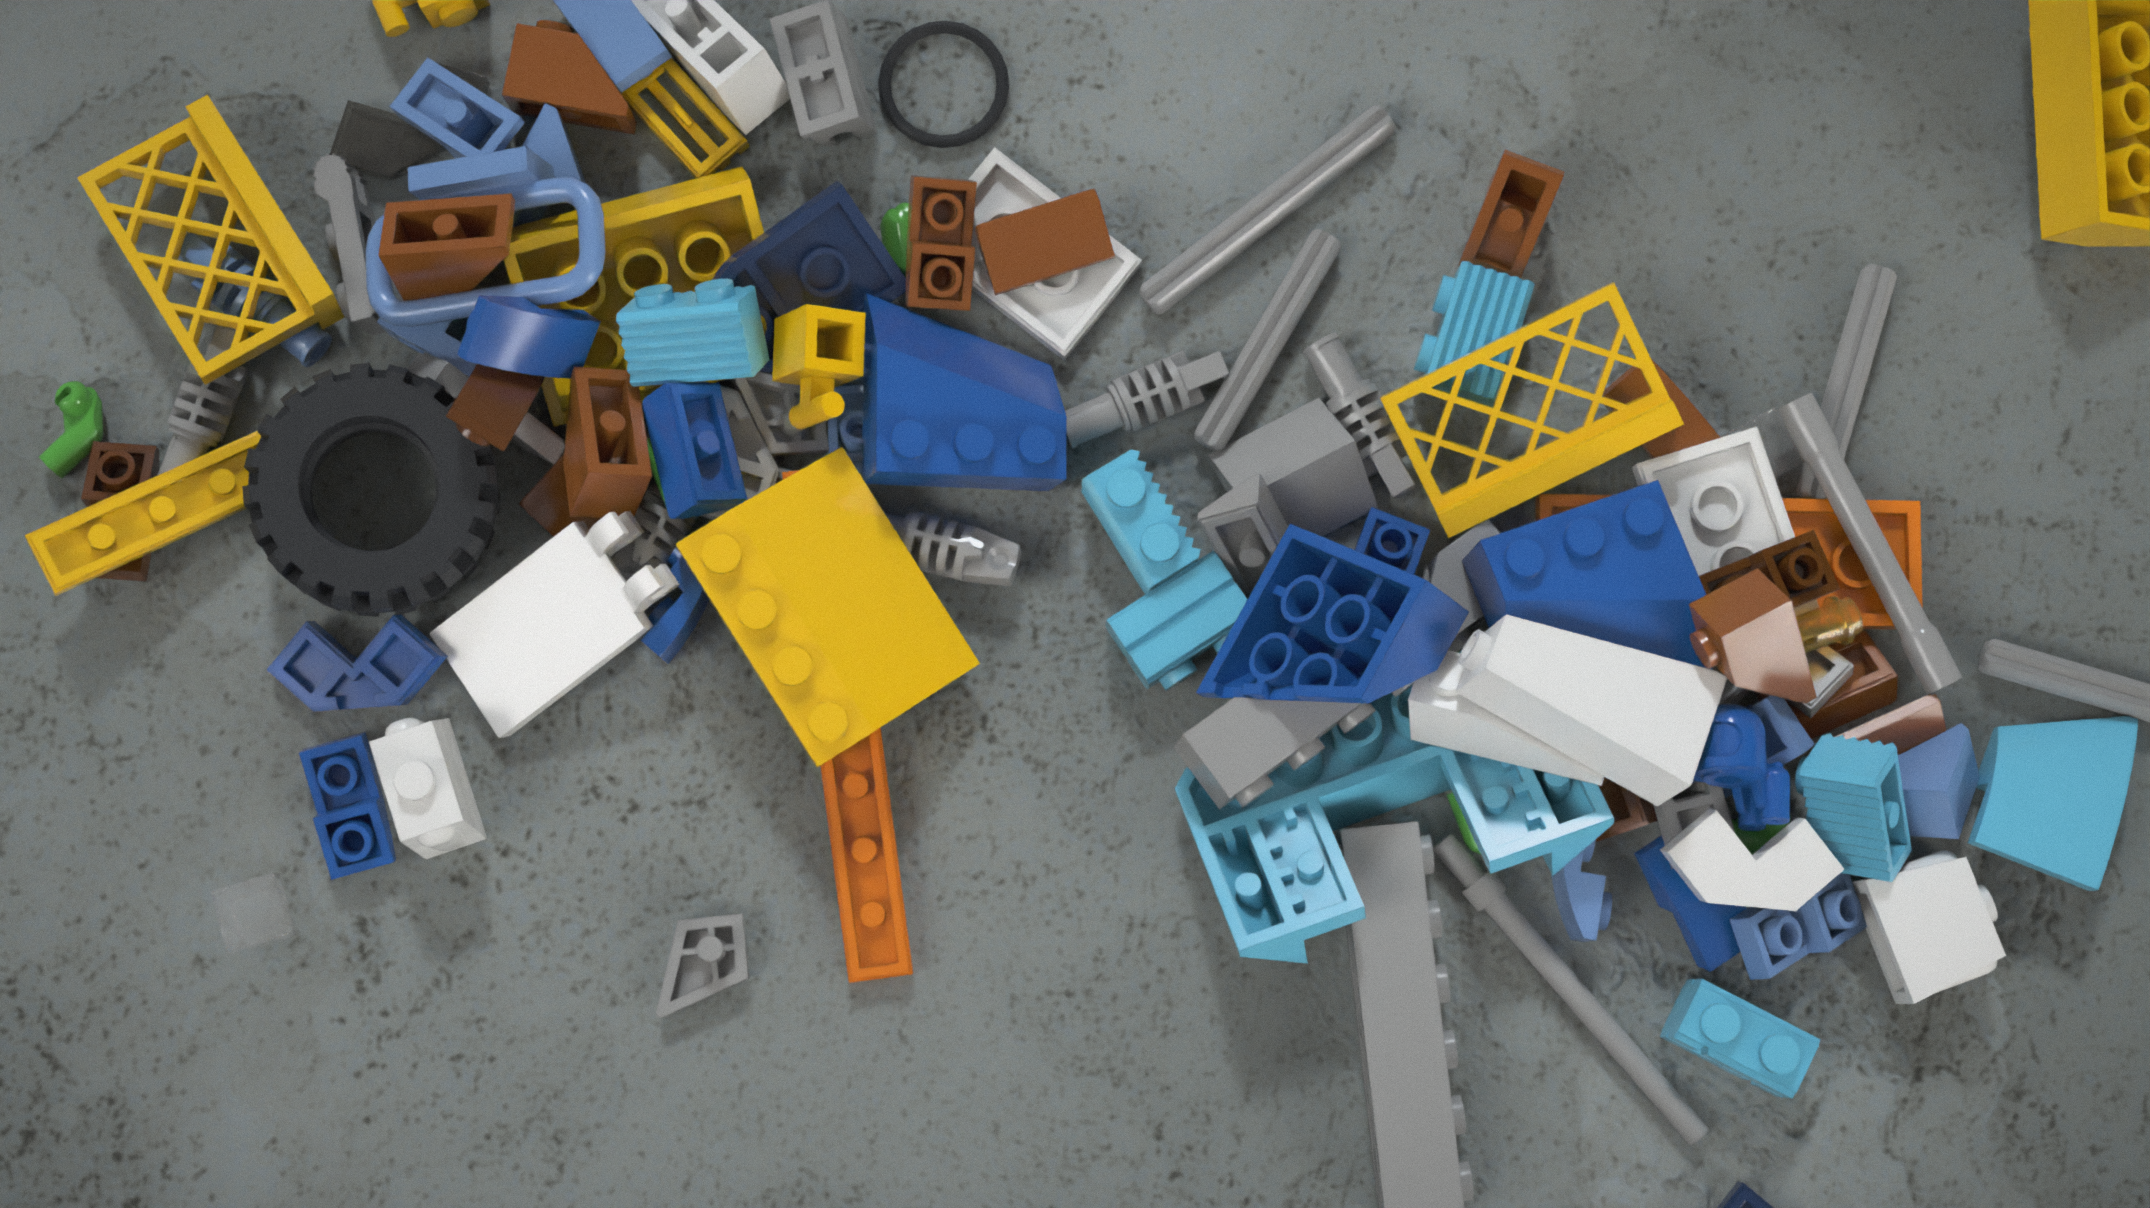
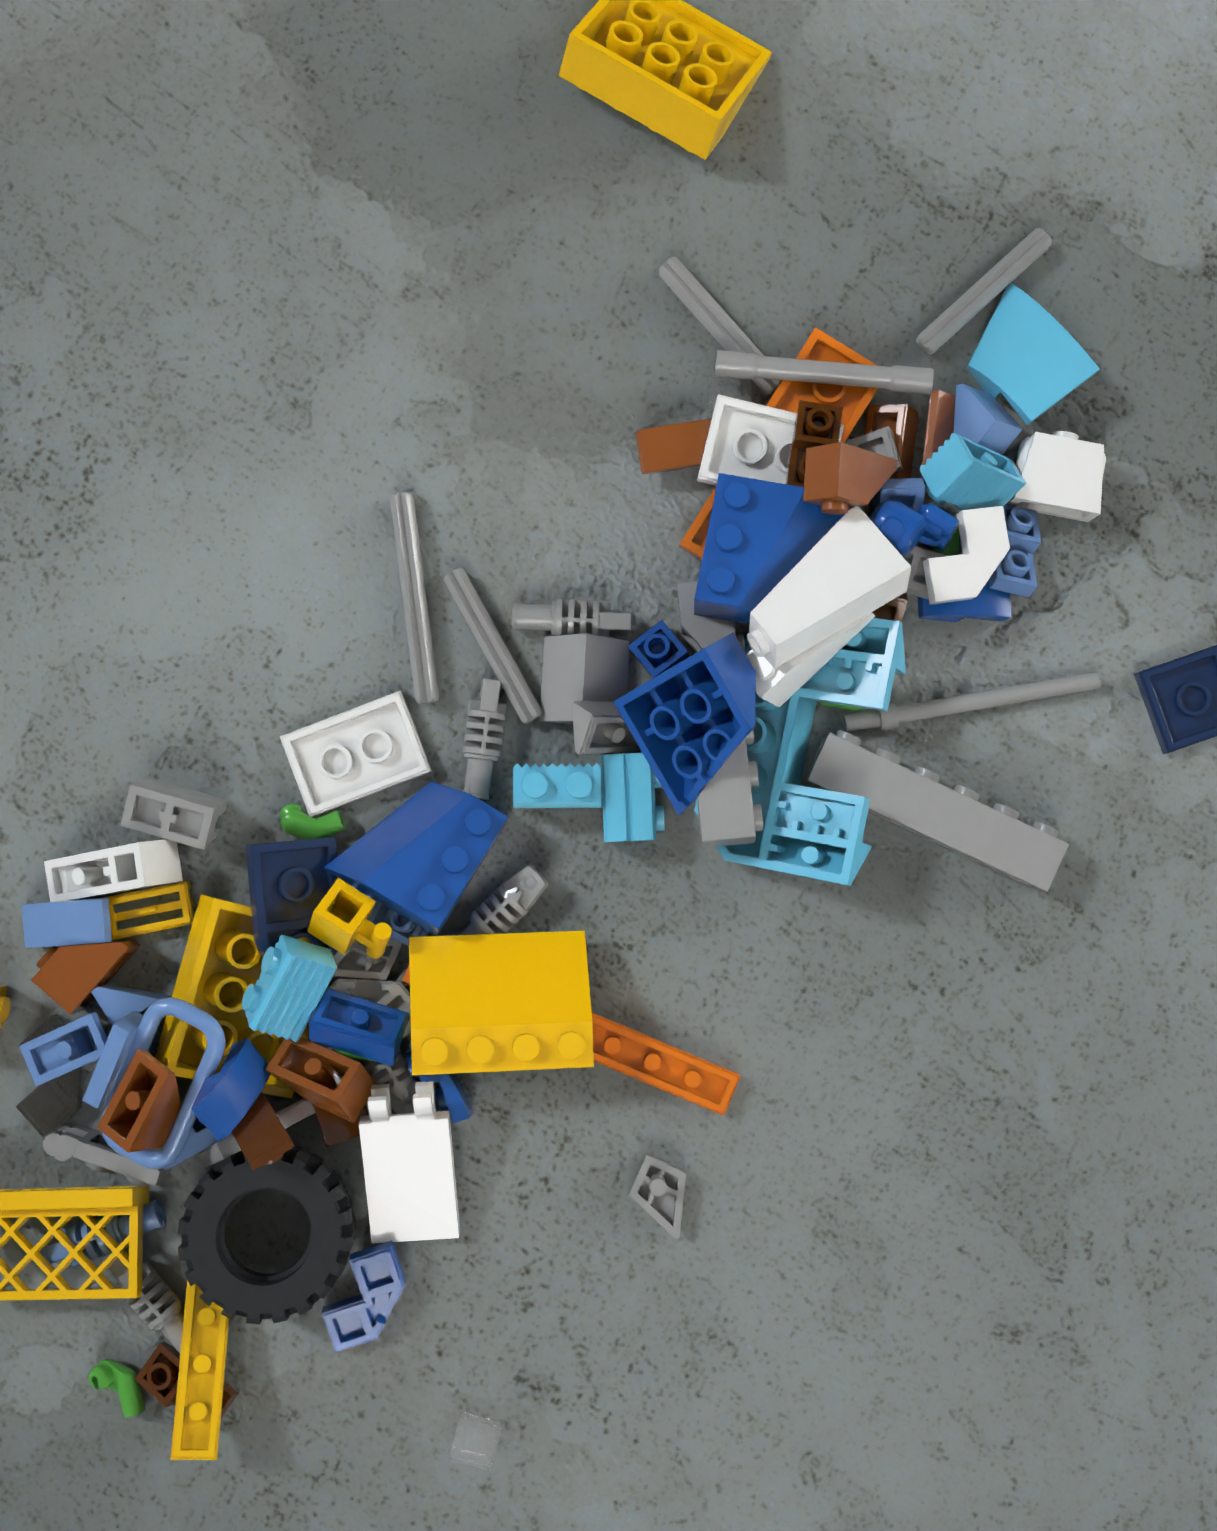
camera: 55 degrees left, 5 degrees up
(348, 805) = (445, 1347): blue slope -> none
(427, 787) = (462, 1298): white torso -> none
(923, 31) = (182, 735): black tyre -> none
(940, 243) = (319, 804): dark orange slope -> none
(1044, 241) = (356, 742): dark orange slope -> none
(1475, 311) = (563, 523): medium azure brick -> none
(1512, 214) = (507, 459): dark orange slope -> none
(1557, 459) = (668, 521): yellow fence -> none
(1582, 898) = (929, 664): medium blue slope -> none
(1740, 1038) = (1059, 624): medium azure brick -> none
(1831, 623) = (857, 424): clear yellow pin -> none

